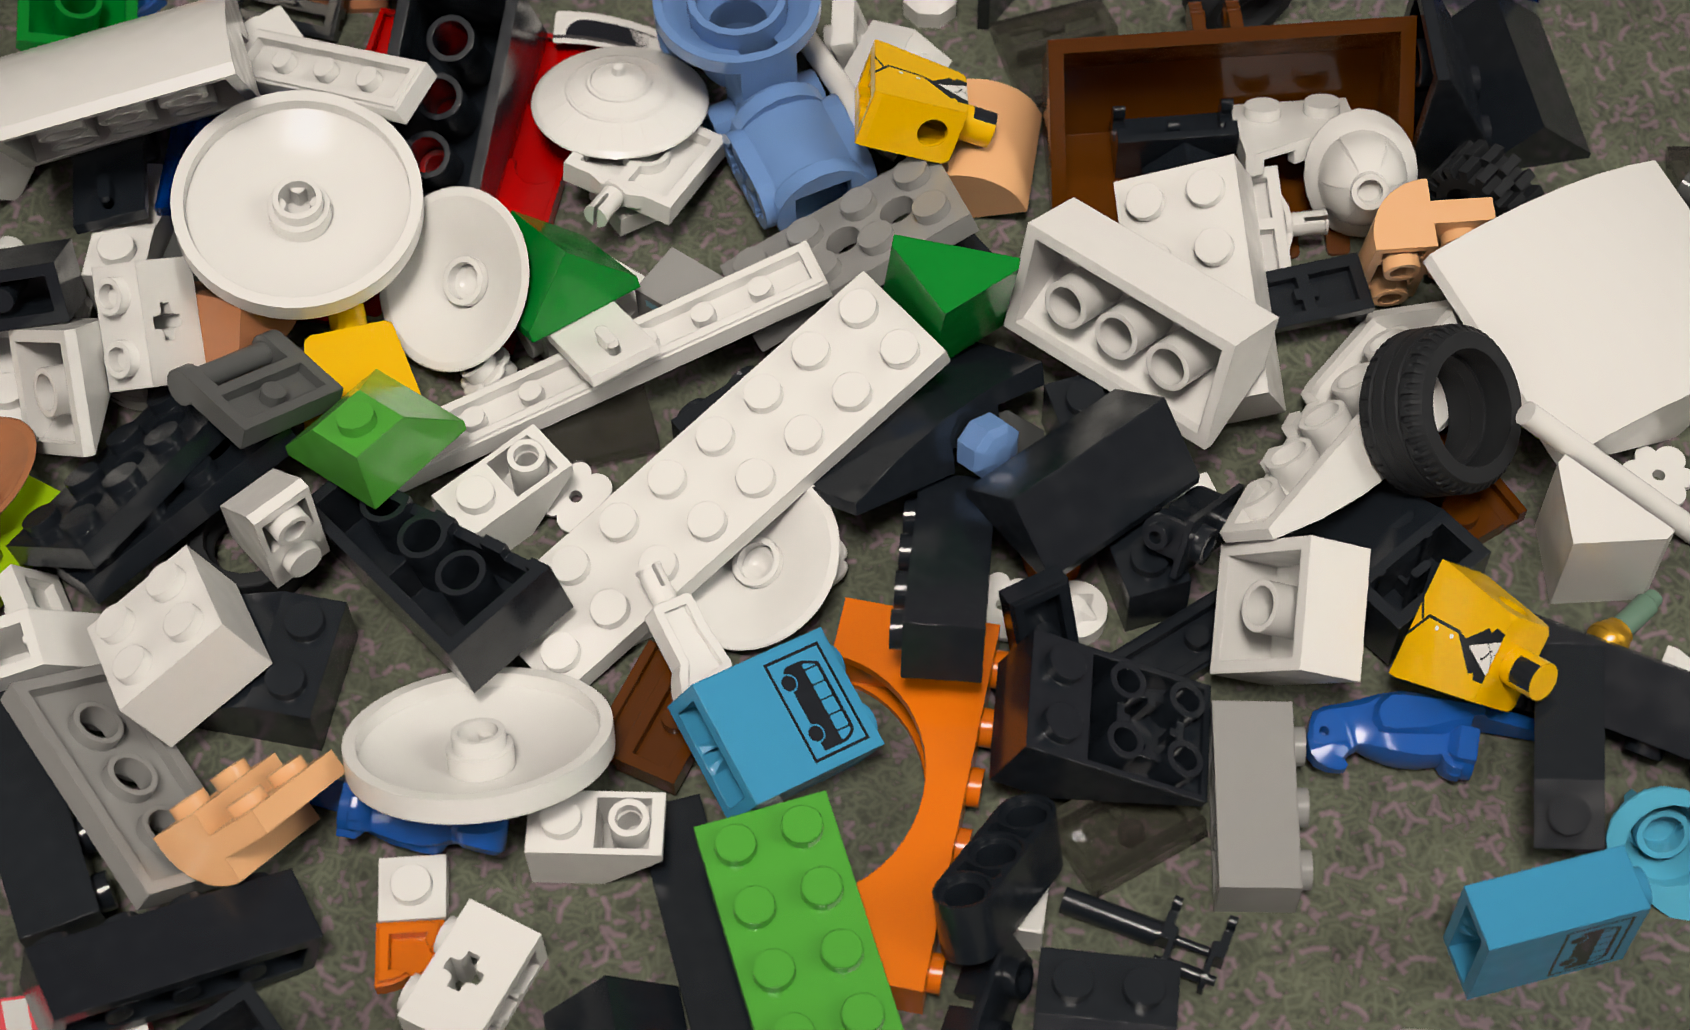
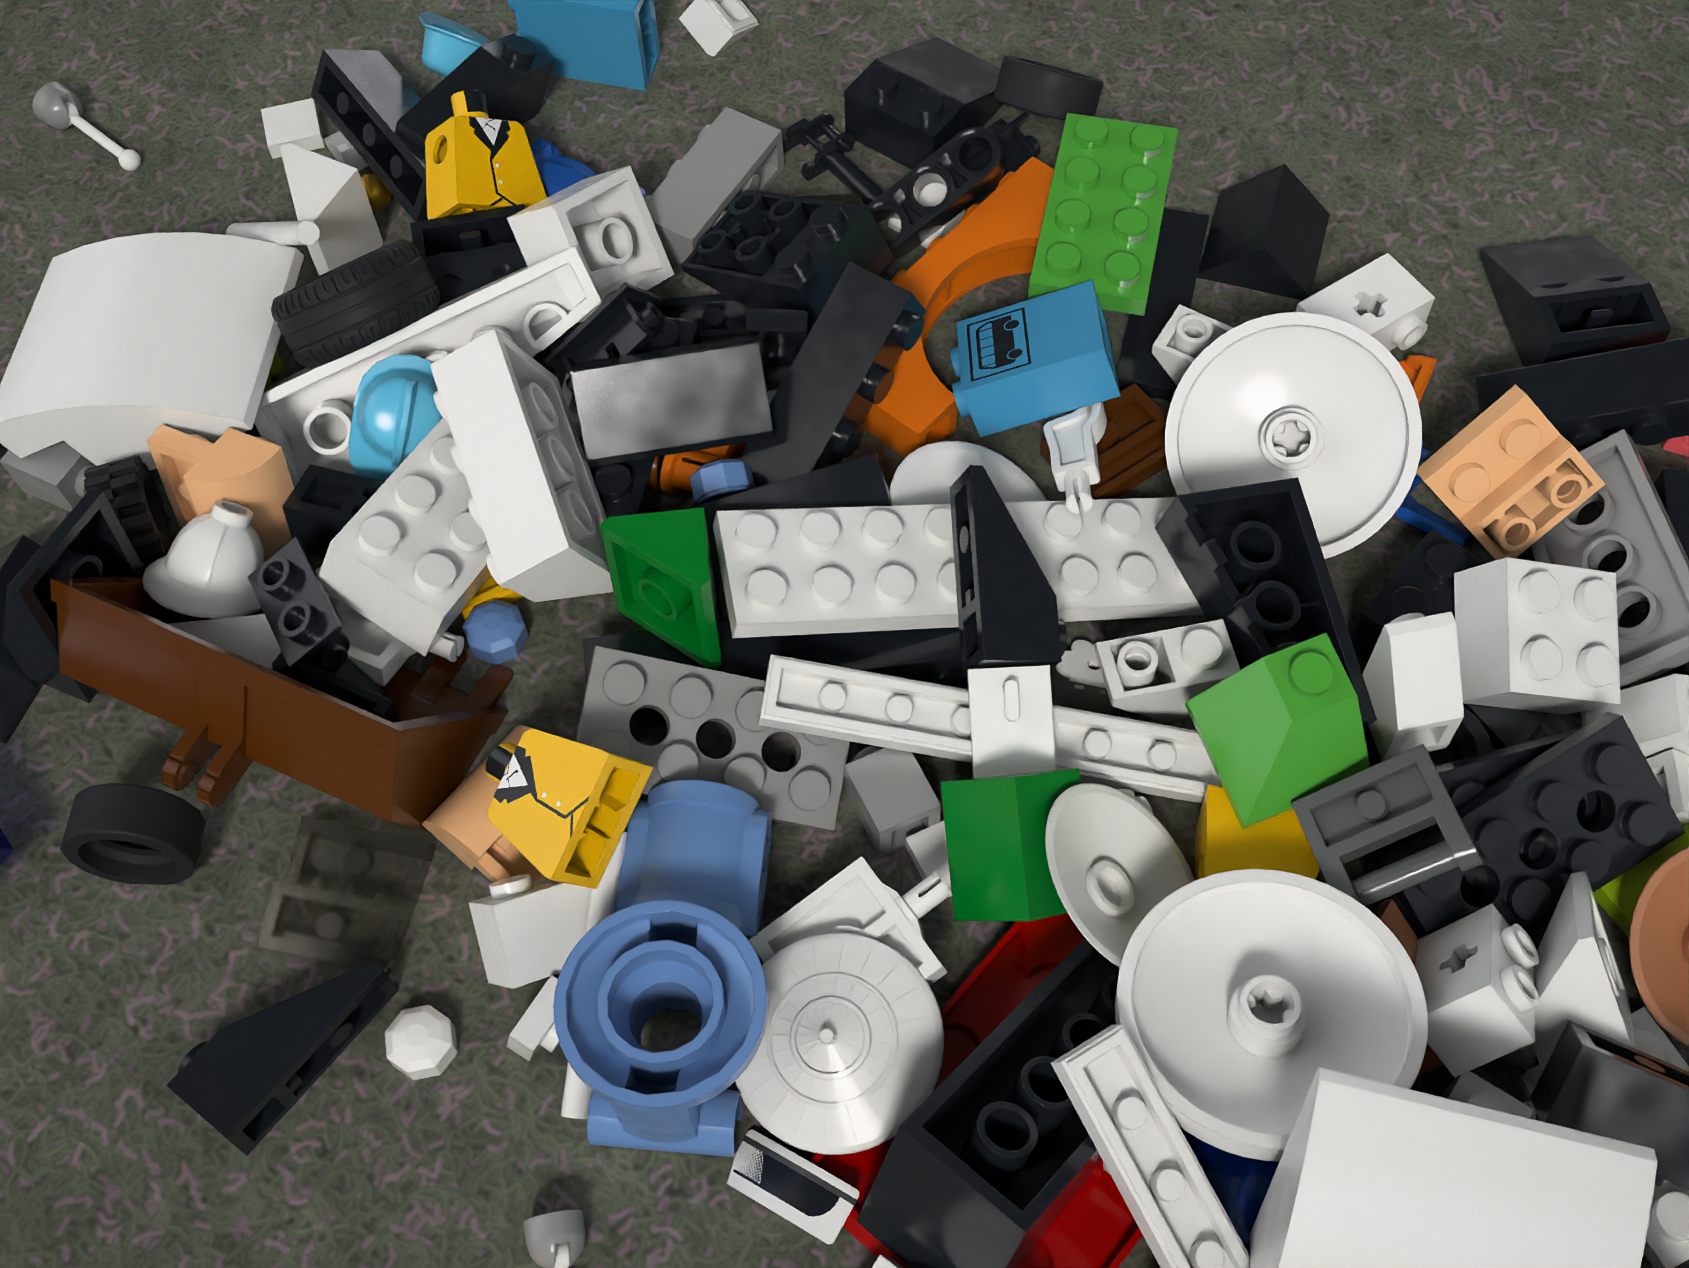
camera: 150 degrees left, 0 degrees up
(661, 418) = (1001, 591): none -> black slope
(1275, 168) = (299, 608): none -> black hinge
(1321, 371) = (391, 414): none -> medium azure piece

